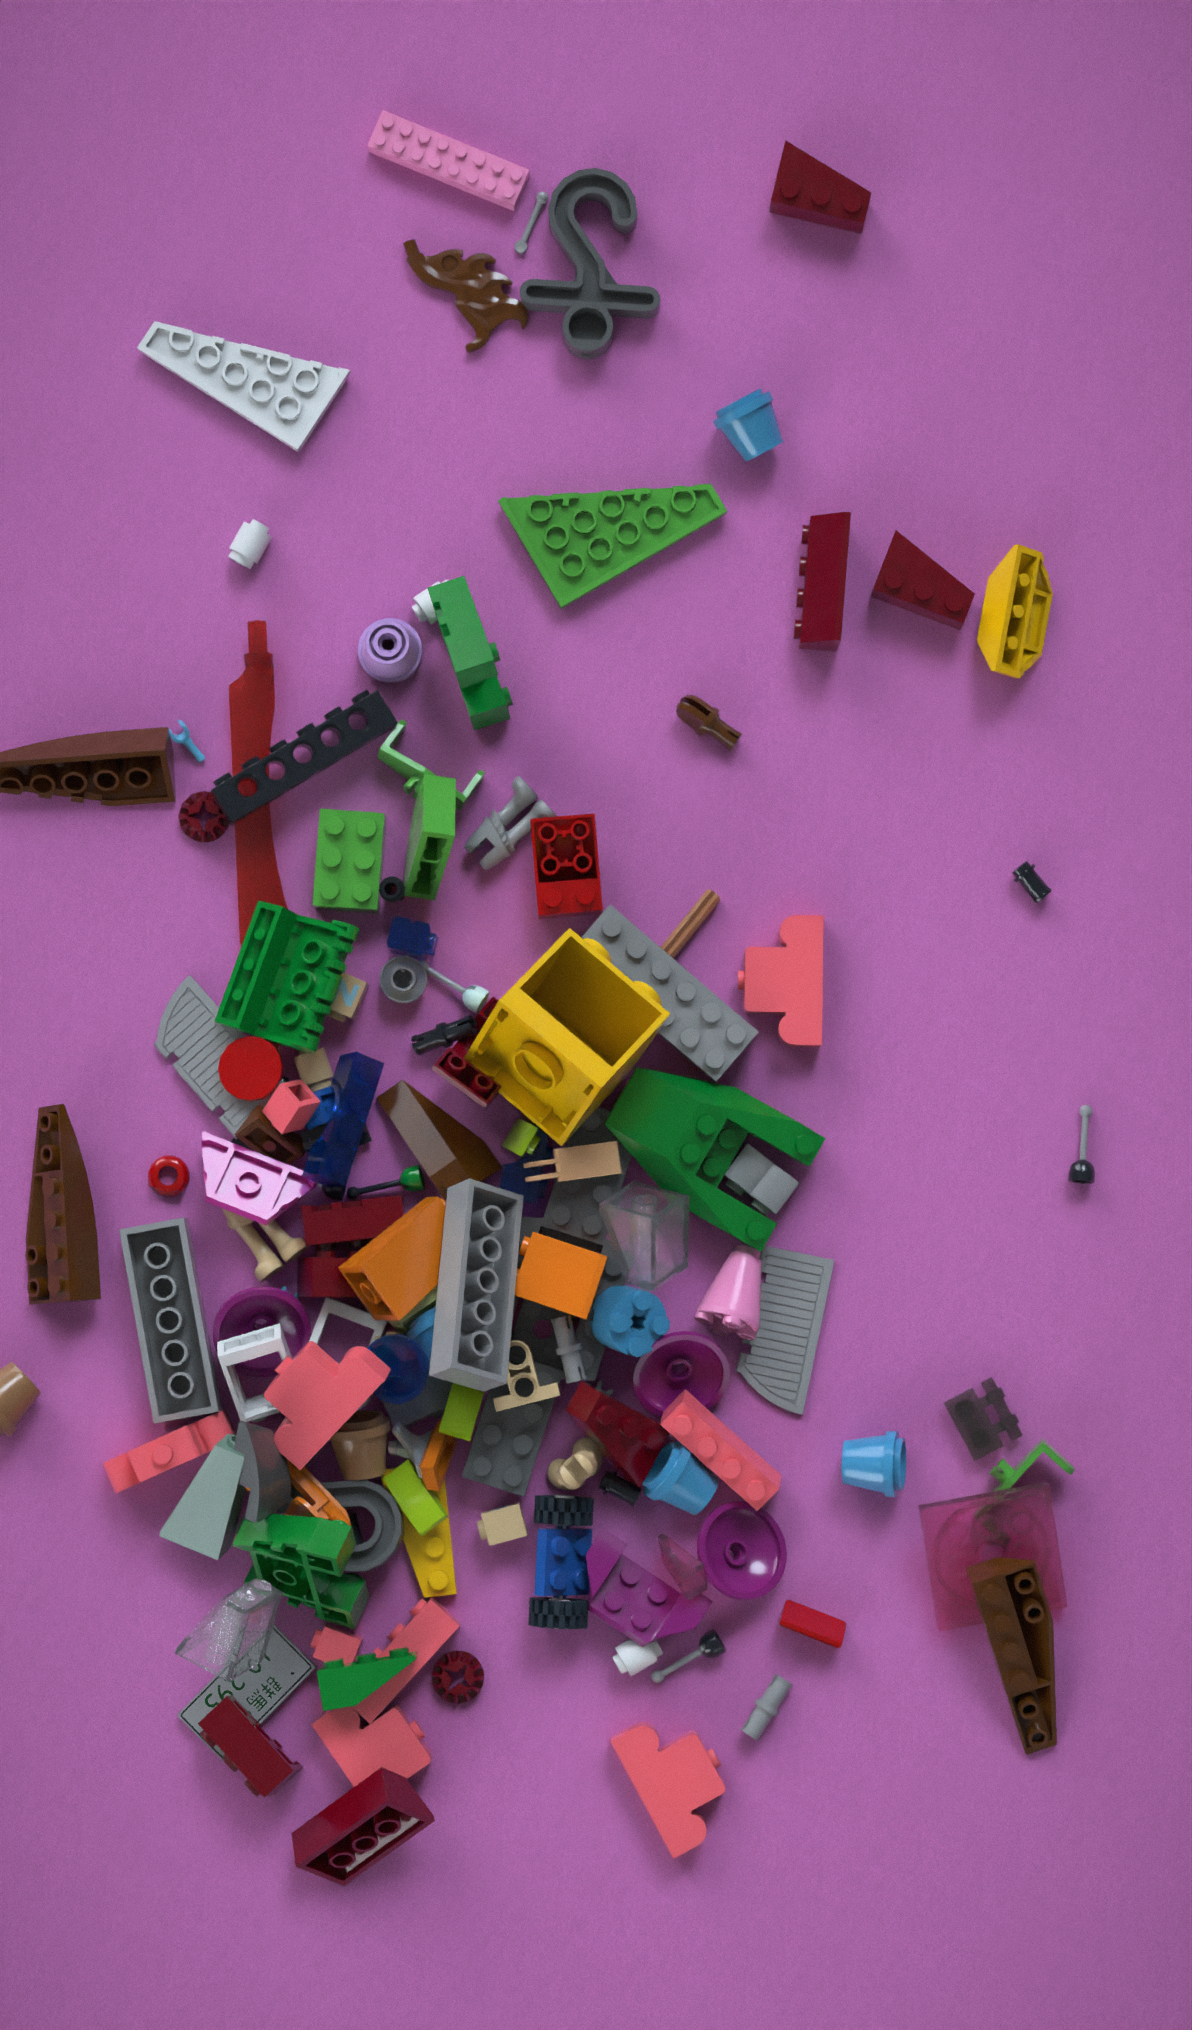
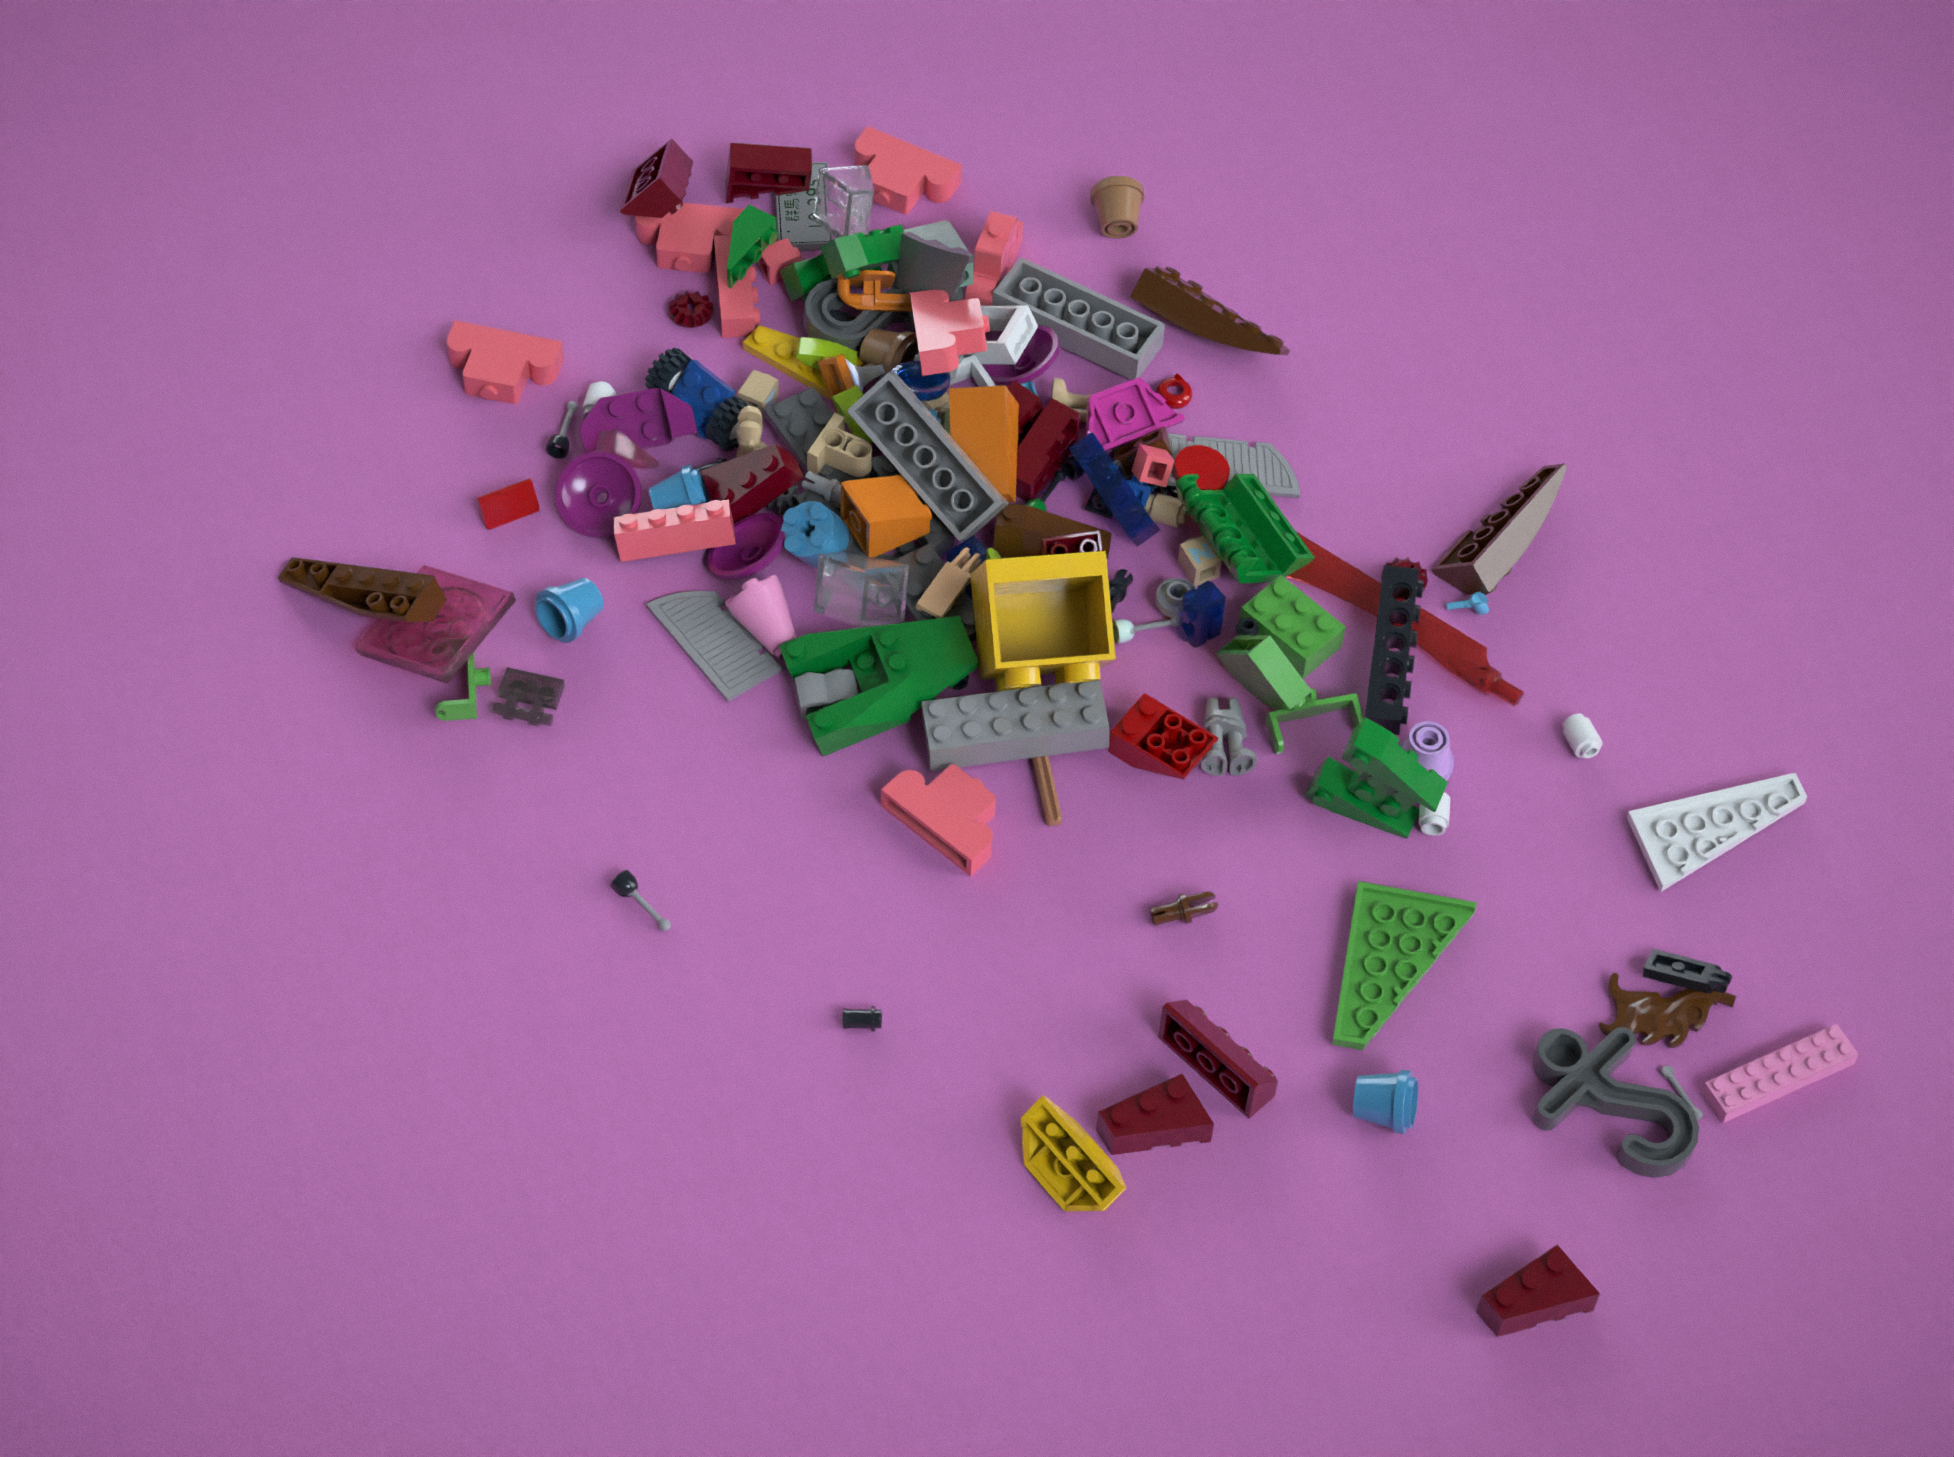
camera: 125 degrees right, 30 degrees down
(130, 1636) = (905, 171): none -> coral brick
(421, 292) = (1686, 972): none -> black hinge
(766, 1707) = (486, 443): light grey pin -> none

